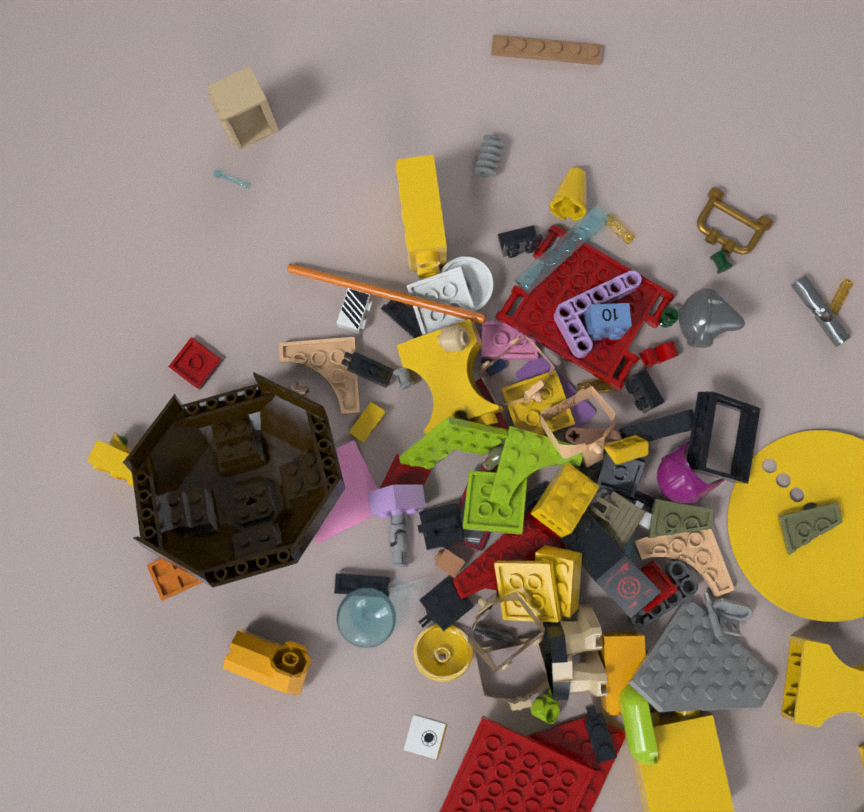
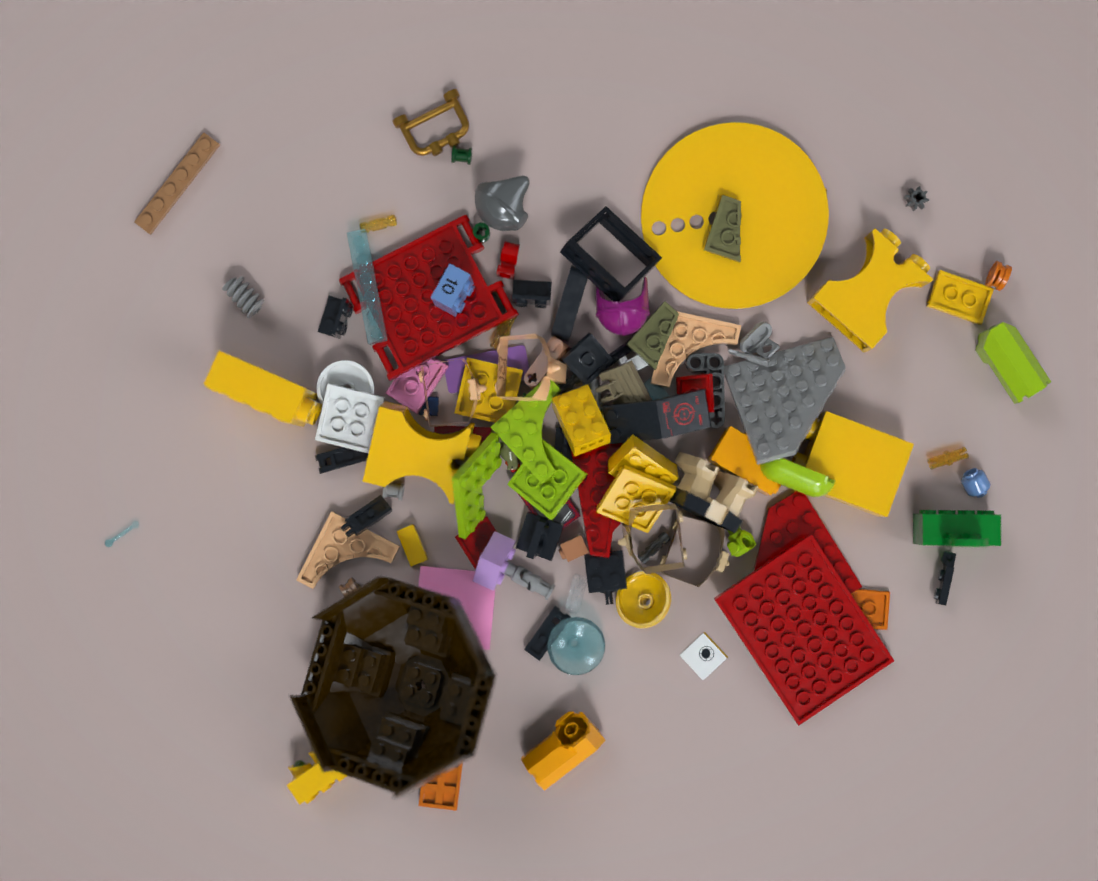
camera: 60 degrees left, 5 degrees up
(195, 363) = (268, 663): red tile -> none
(242, 108) = (67, 487): tan hose -> none
(354, 311) = (308, 497): brick -> none
(387, 293) = (310, 461): orange piece -> none
(453, 338) = (388, 430): tan head -> none
(571, 196) = (323, 247): yellow cone -> none
(588, 299) = (426, 293): lavender beam -> none
(599, 735) = (788, 512): black hinge -> none
(627, 449) = (571, 341): yellow slope -> none
(814, 302) = (543, 99): dark grey piece -> none
(840, 296) = (554, 73): clear yellow axle -> none

